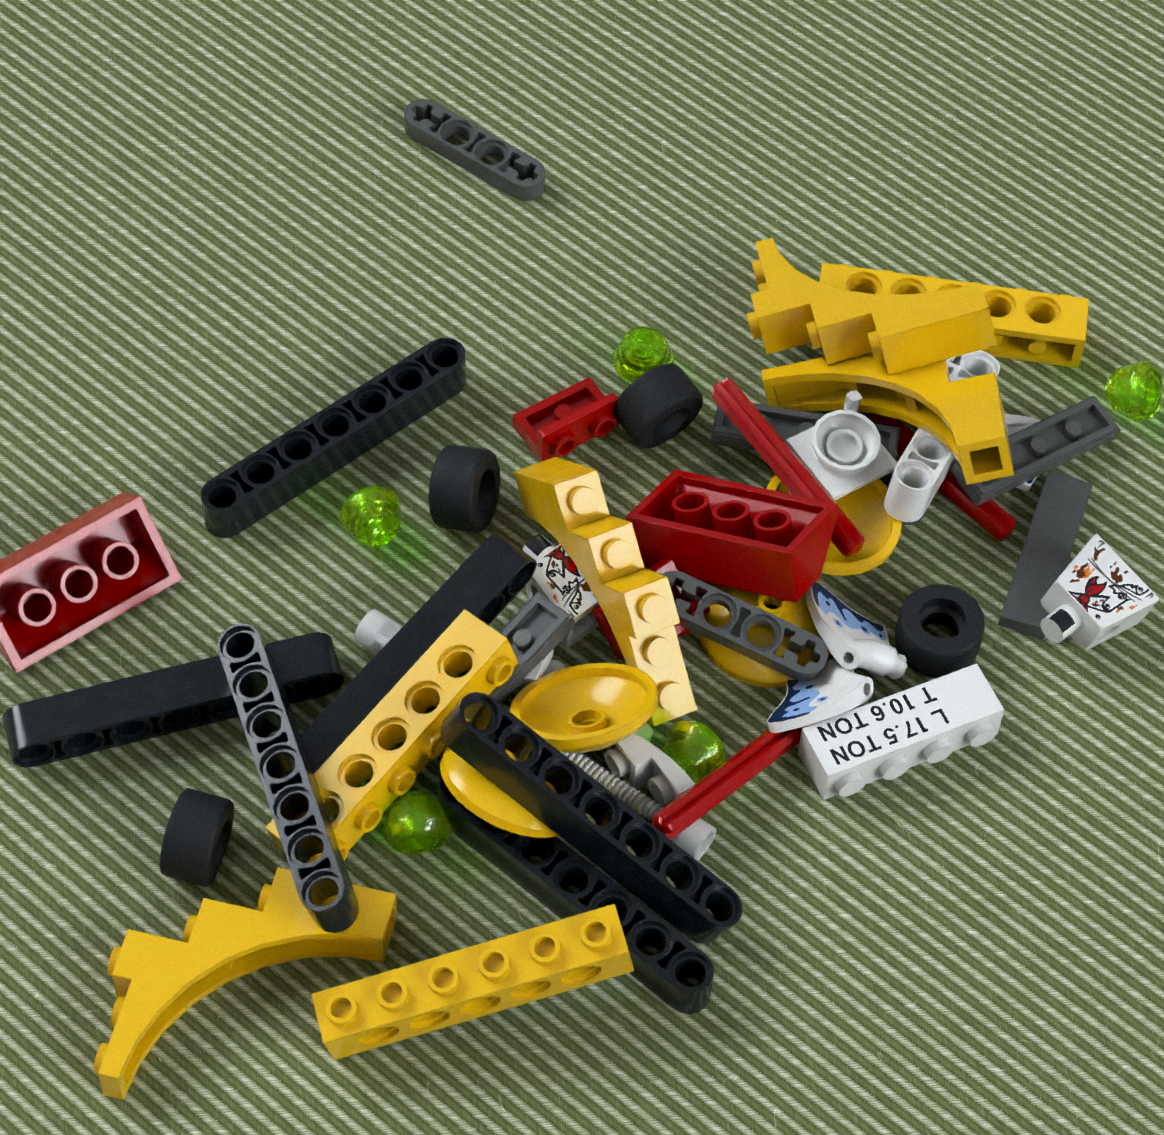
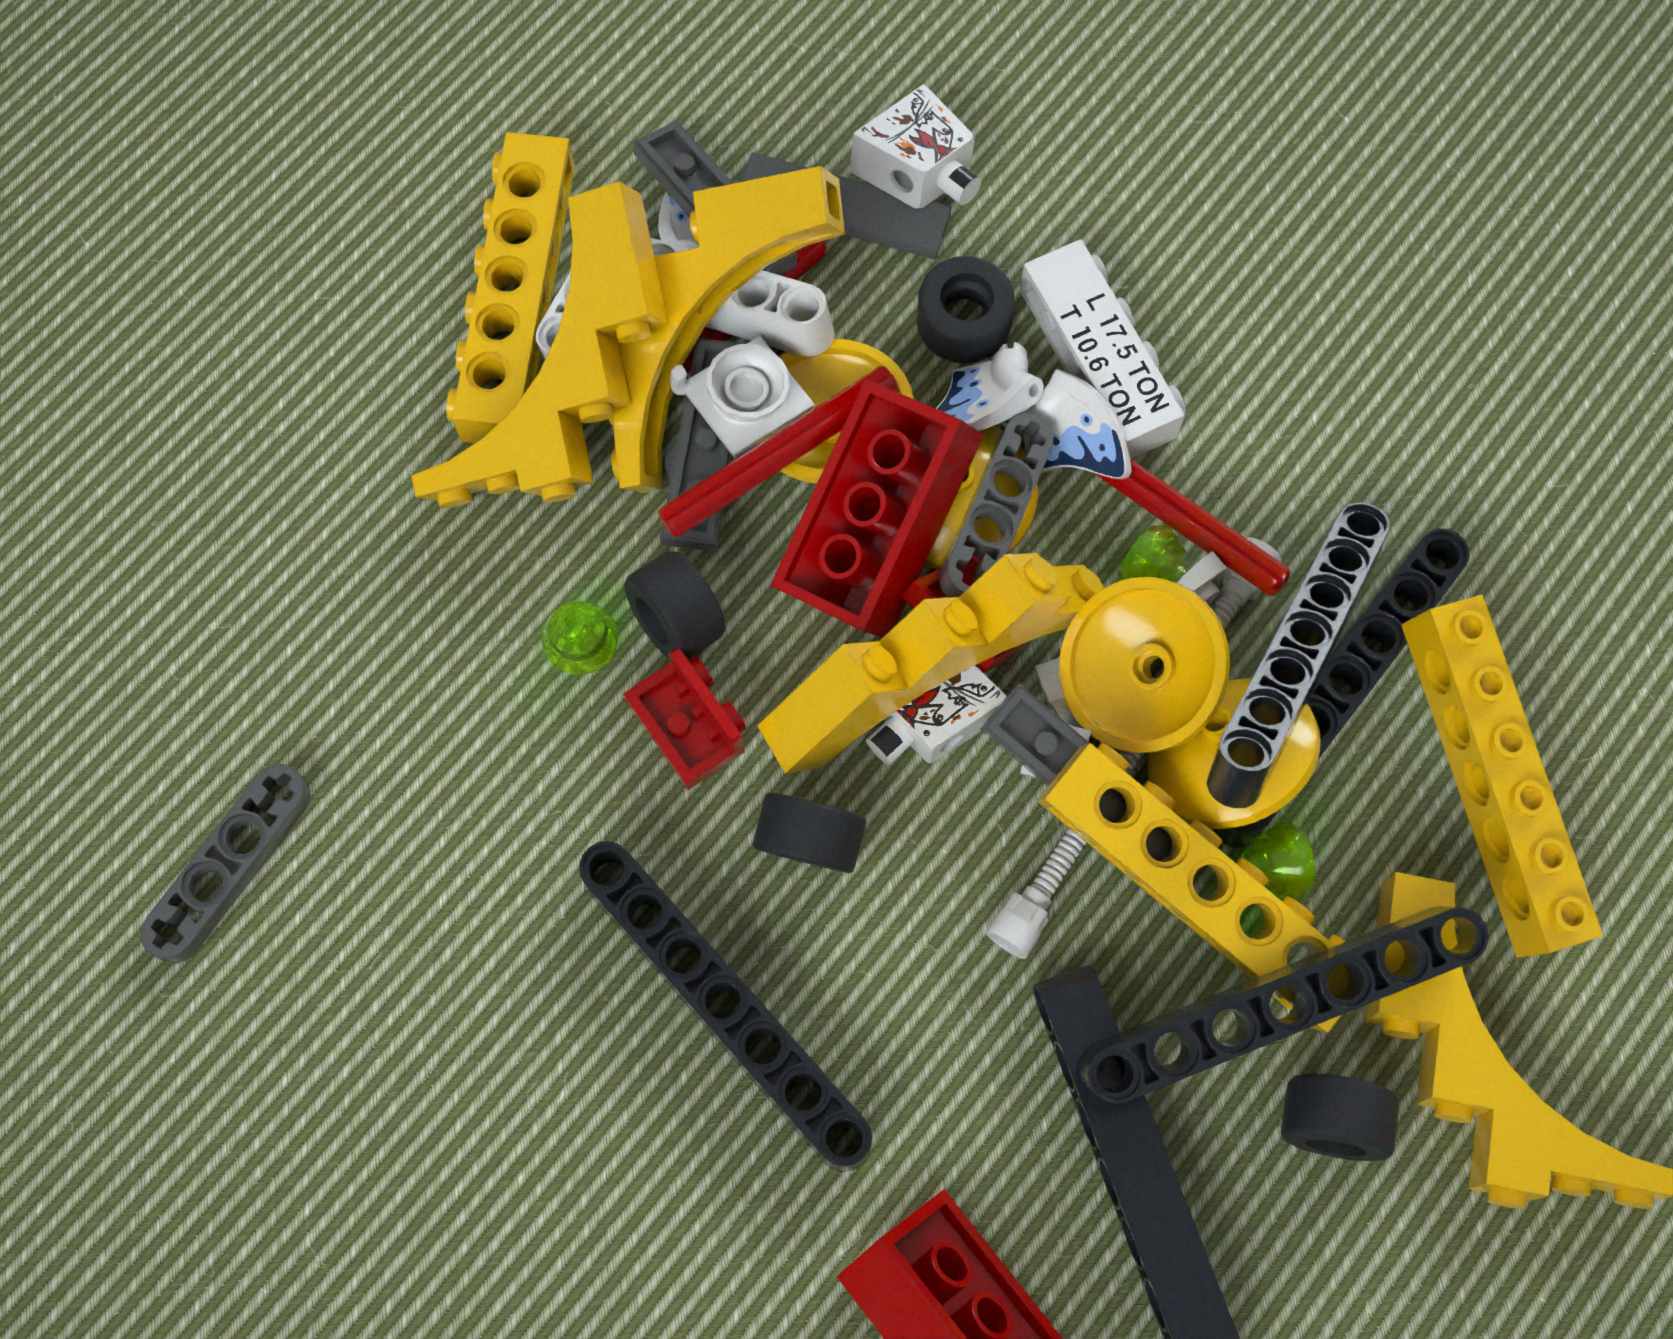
camera: 90 degrees left, 15 degrees up
(372, 515) = (851, 947): clear neon green cone -> none
(479, 585) = (1075, 874): black beam -> none
(1135, 390) = (625, 101): clear neon green cone -> none

